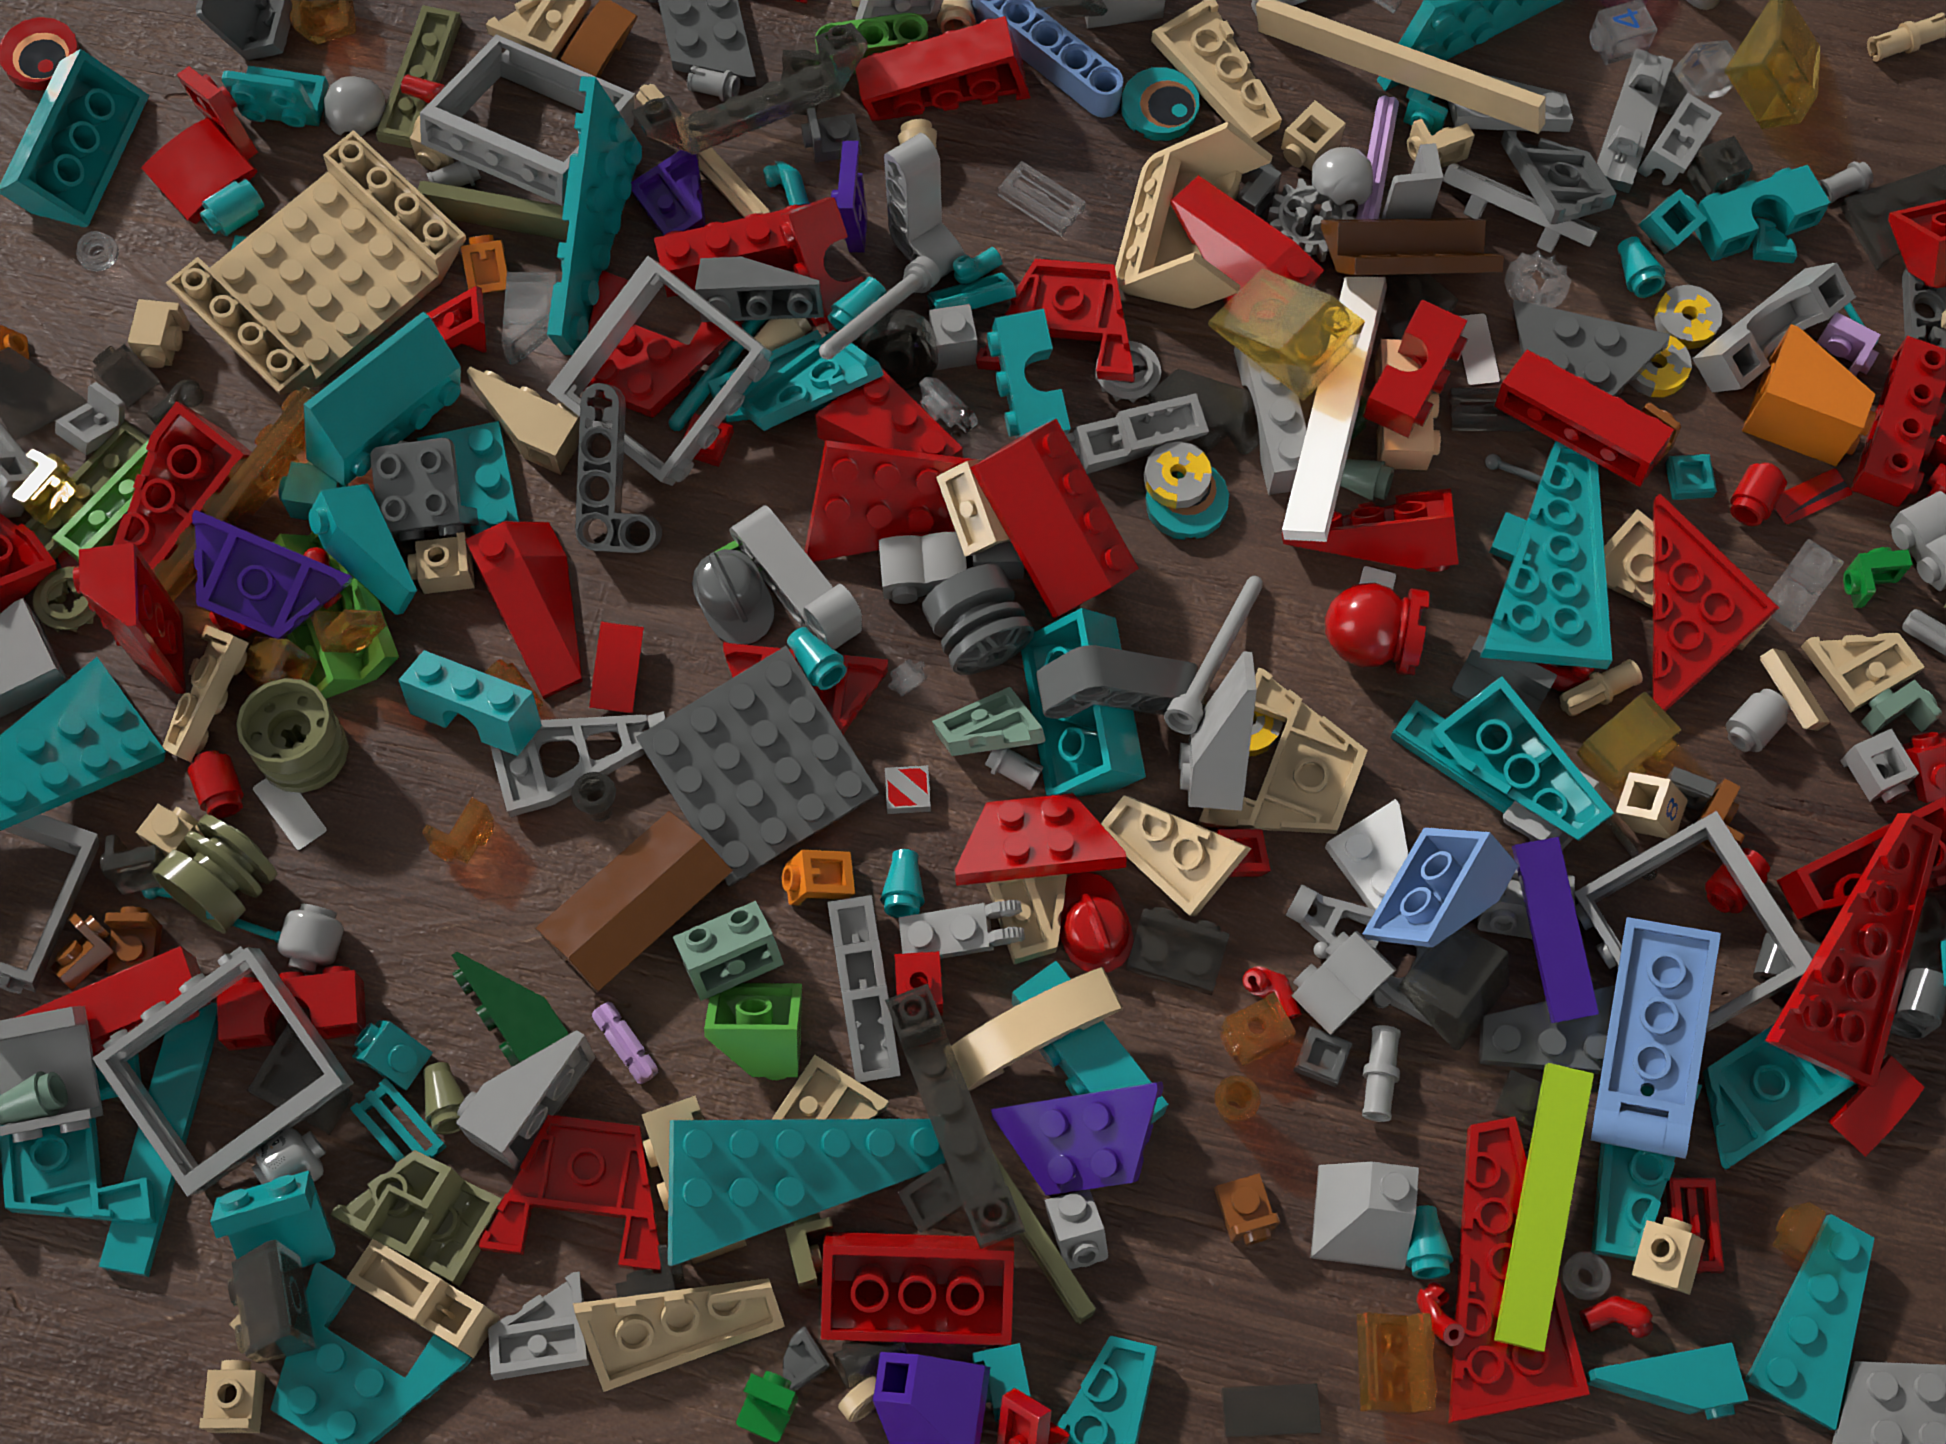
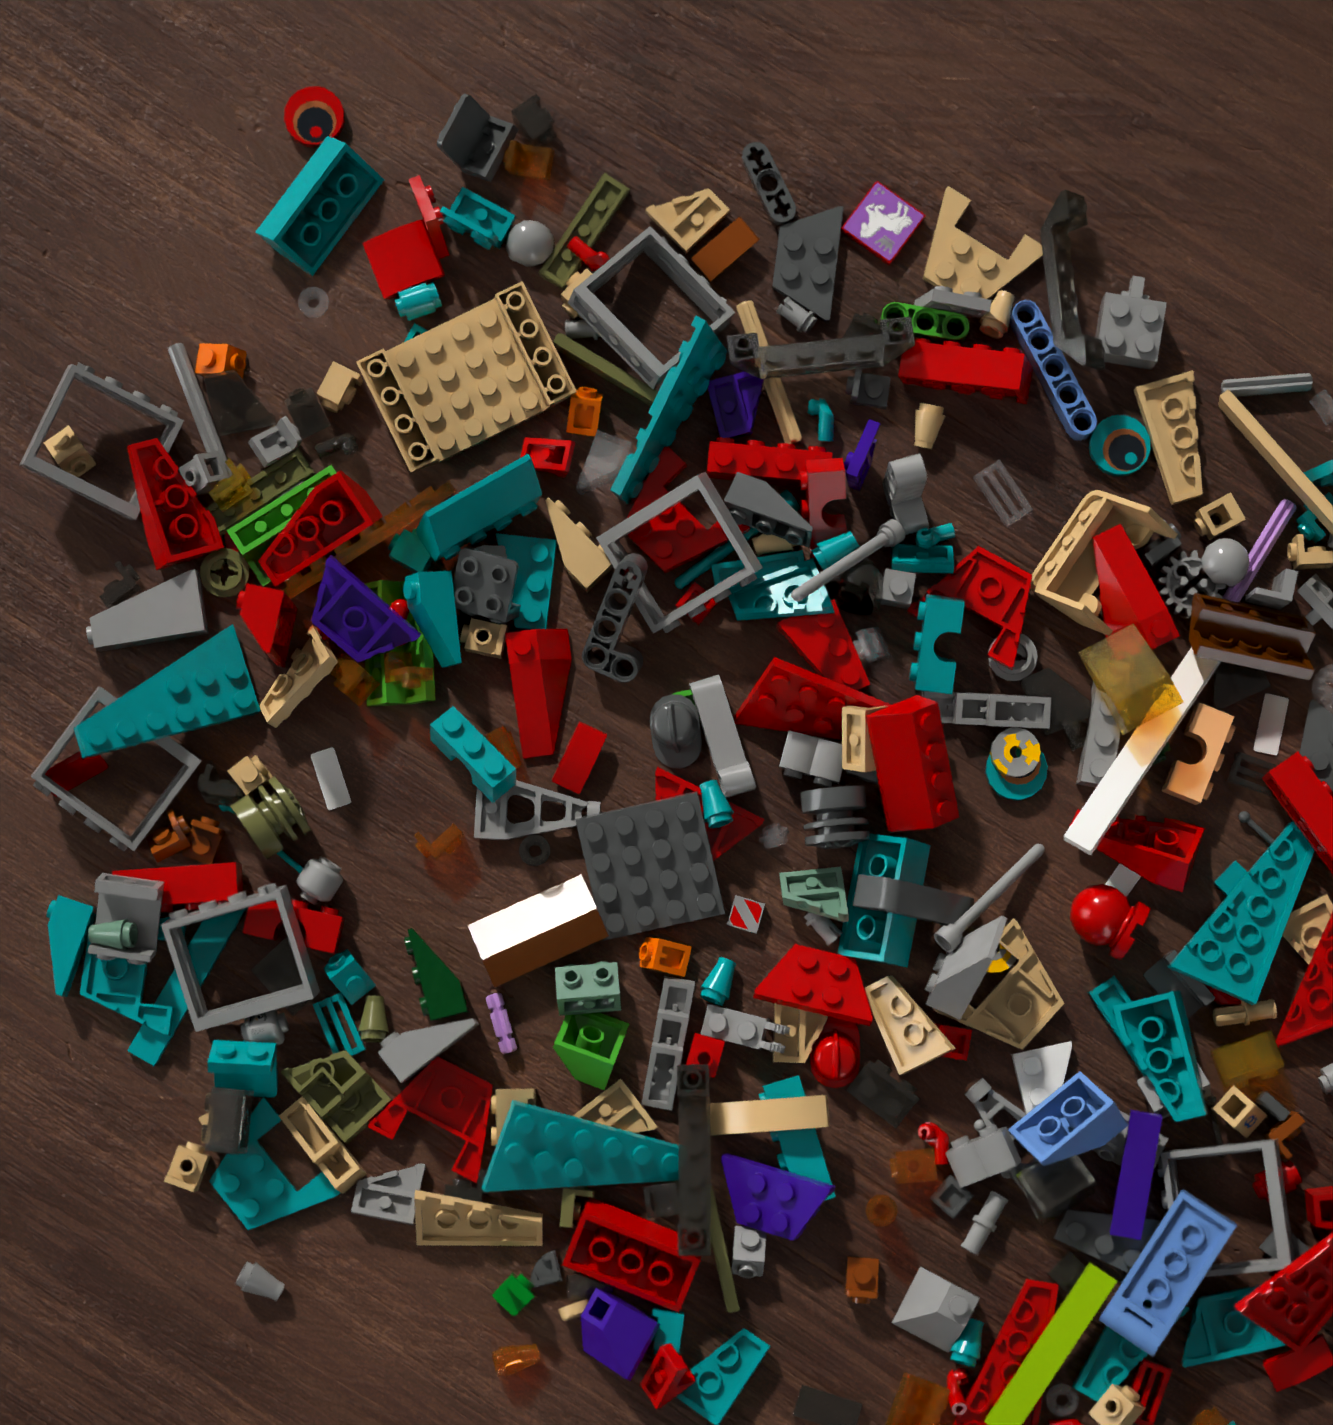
camera: 20 degrees right, 15 degrees up
(216, 784) = (287, 748): red brick -> none
(292, 735) = (348, 718): olive wheel -> none
(1367, 478) = (1149, 801): sand green cone -> none
(1403, 396) = (1233, 723): red arch -> none

